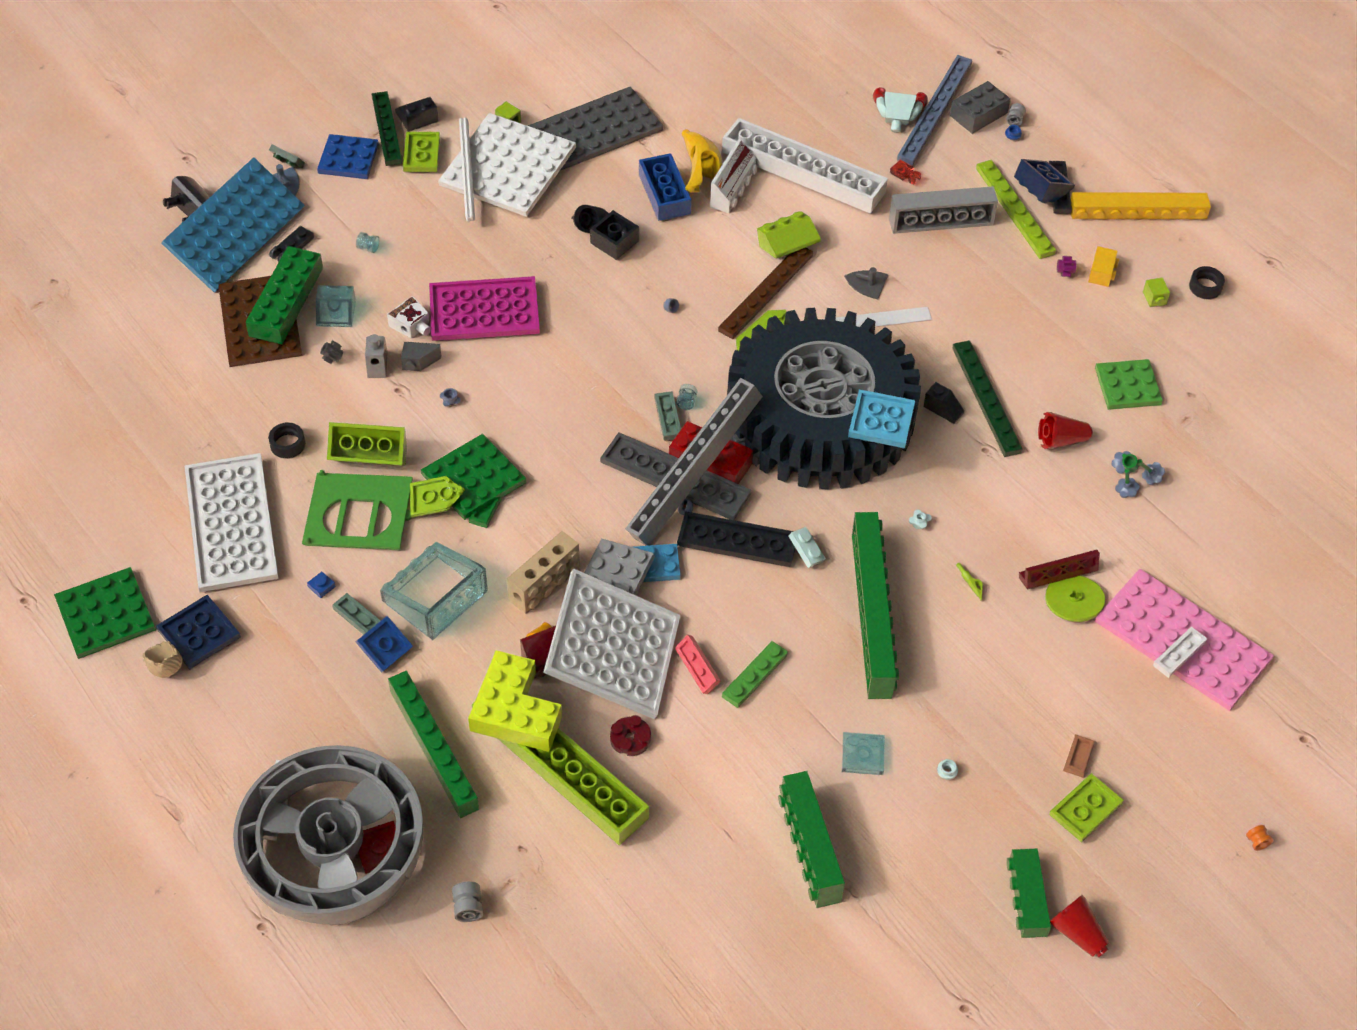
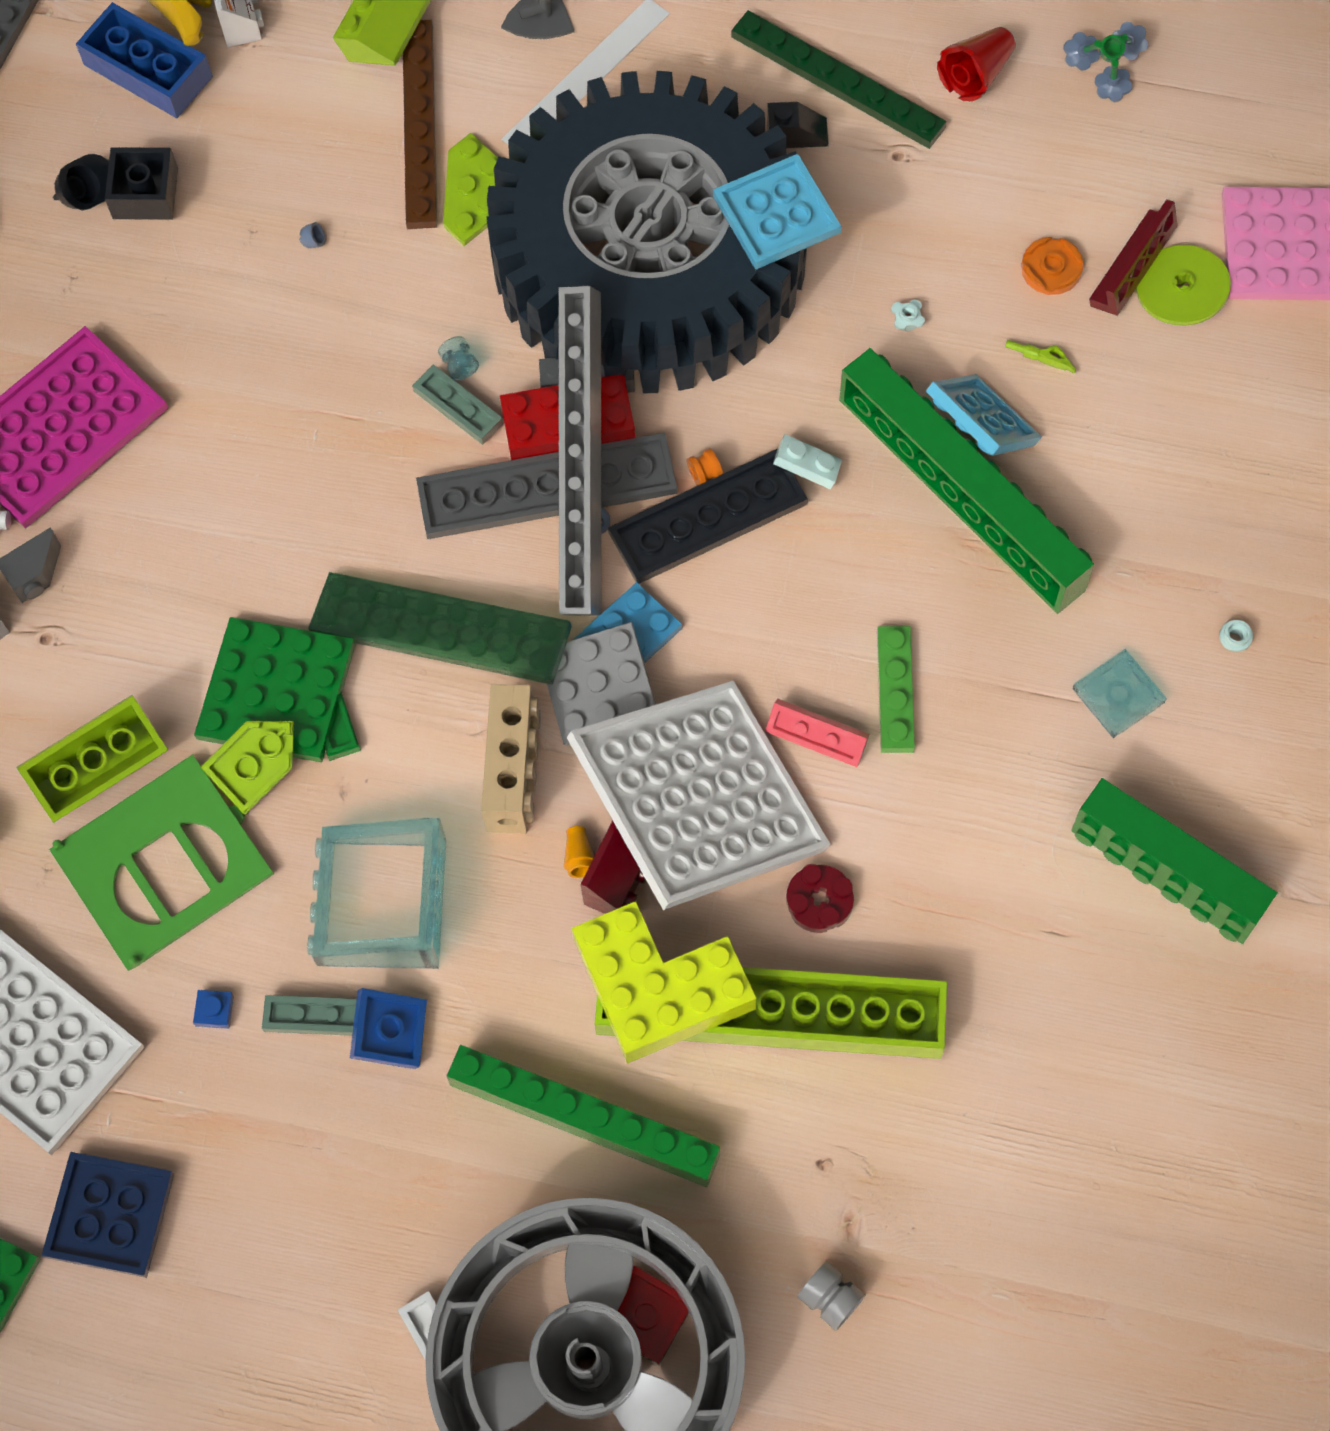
camera: 35 degrees left, 15 degrees up
(163, 659) = (102, 1297): tan hair -> none
(450, 397) = (129, 588): sand blue plate -> none
(569, 500) = (441, 627): none -> clear green plate
(756, 516) = (704, 467): none -> orange wheel
(910, 581) = (983, 414): none -> medium azure plate
(1015, 546) = (1052, 266): none -> orange tile

